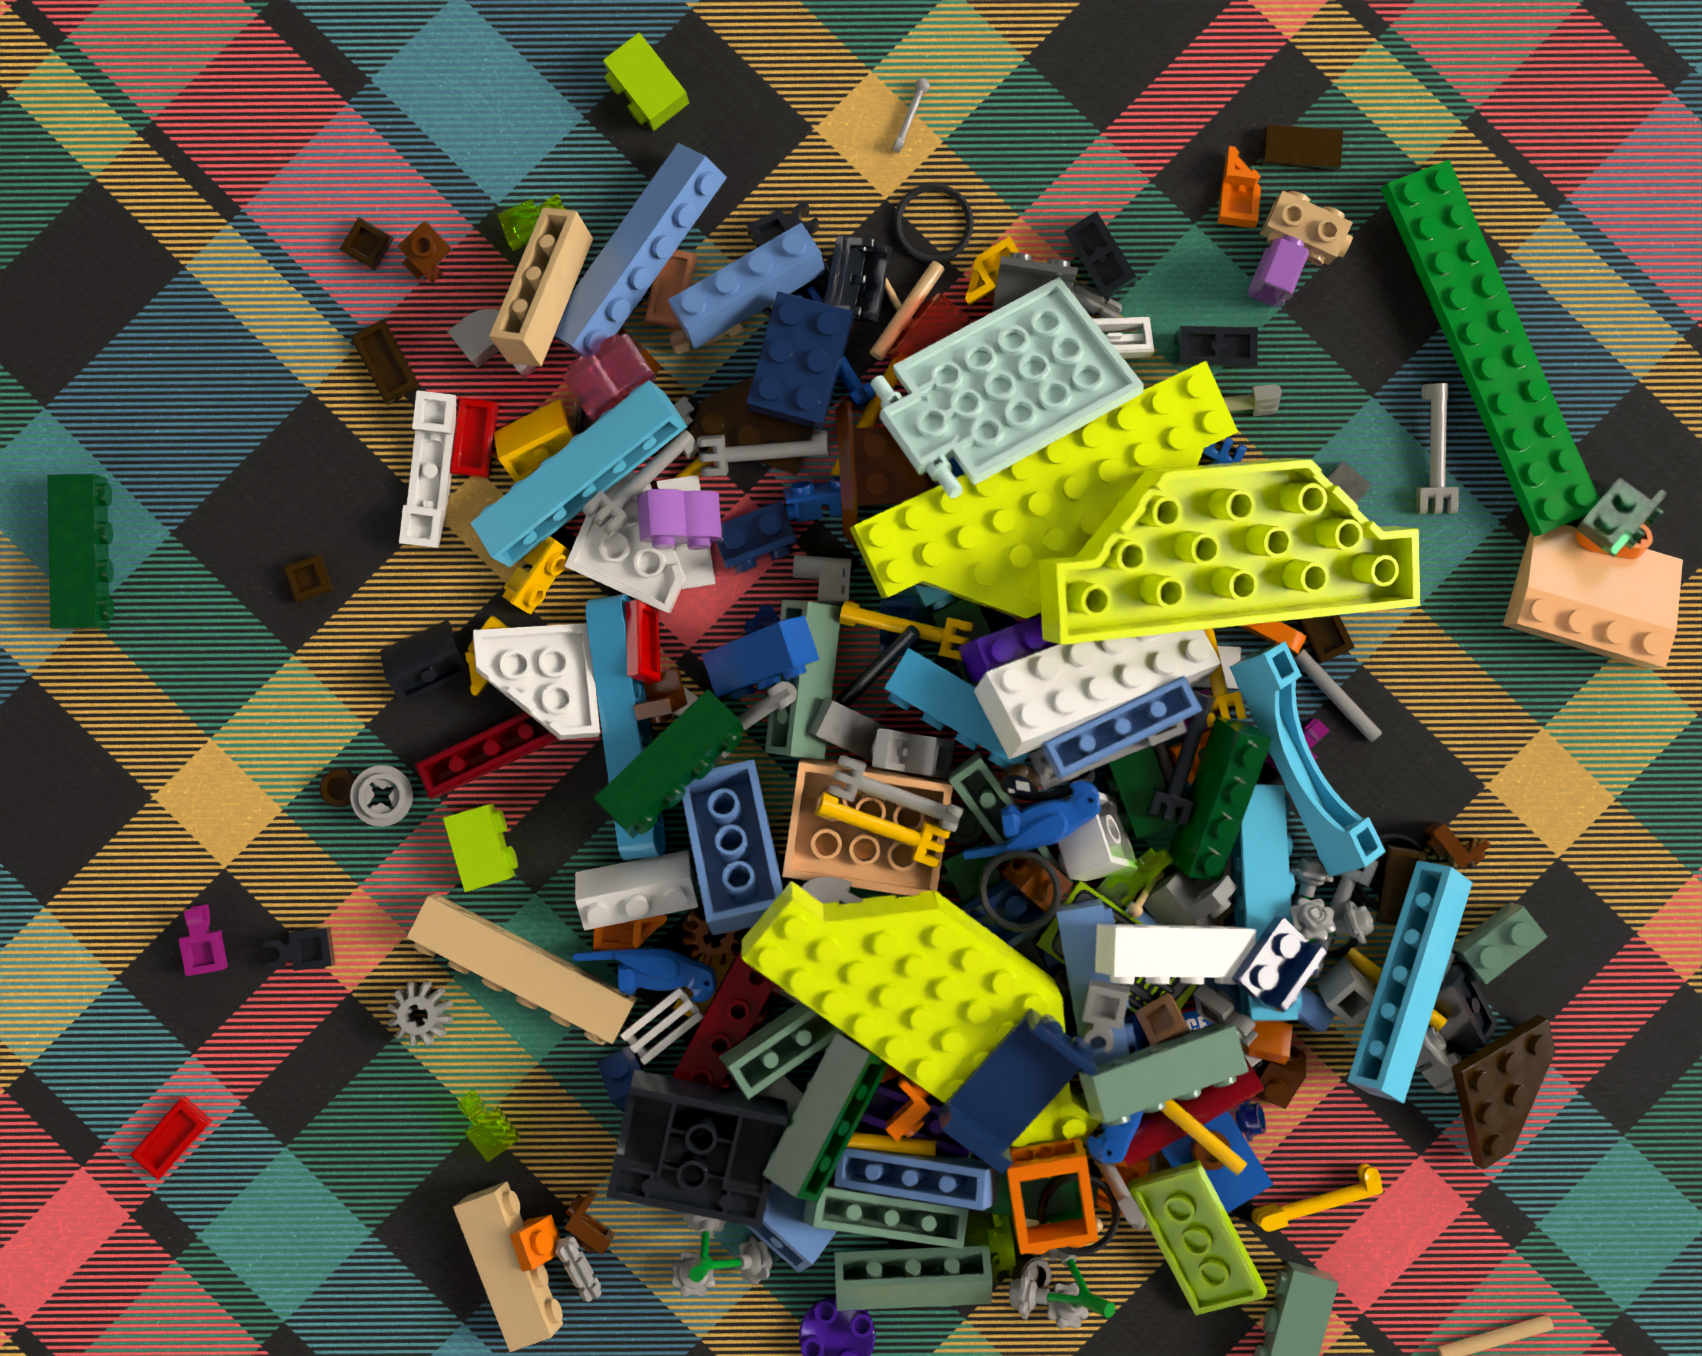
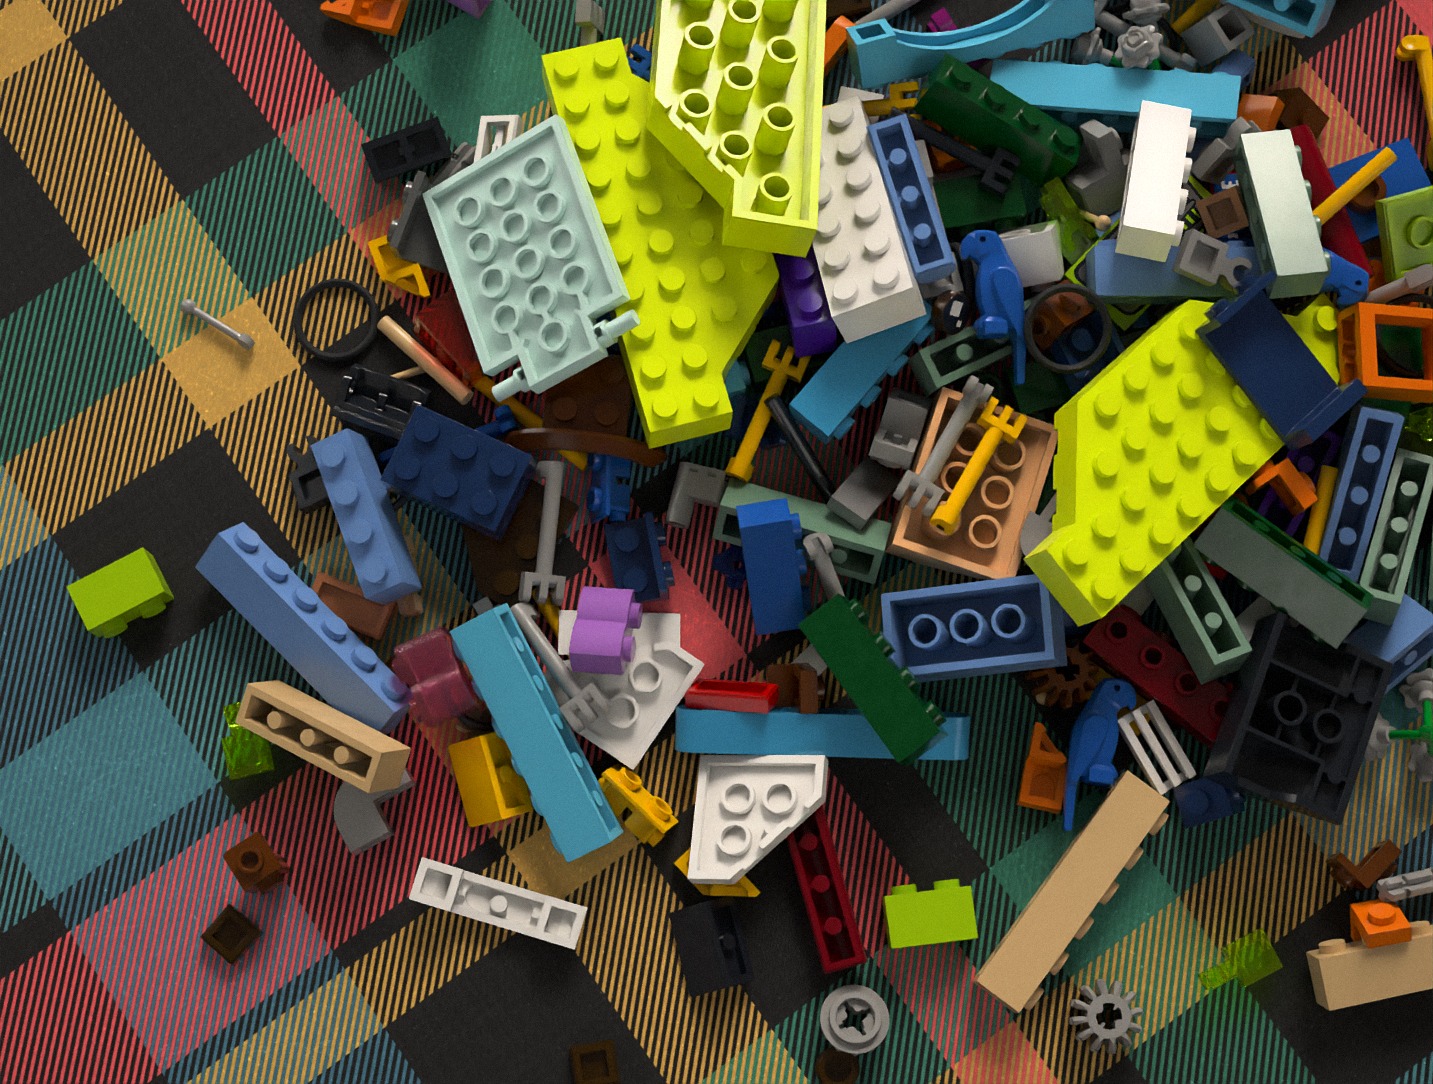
camera: 80 degrees left, 10 degrees down
(385, 361) = (367, 935): dark brown tile -> none
(474, 437) = (472, 849): red tile -> none
(636, 890) = (1003, 748): white brick -> none
(1217, 346) = (522, 60): black hinge -> none
(1251, 1119) = (1337, 151): clear blue plate -> none
(1278, 966) = (1184, 82): dark blue bracket -> none

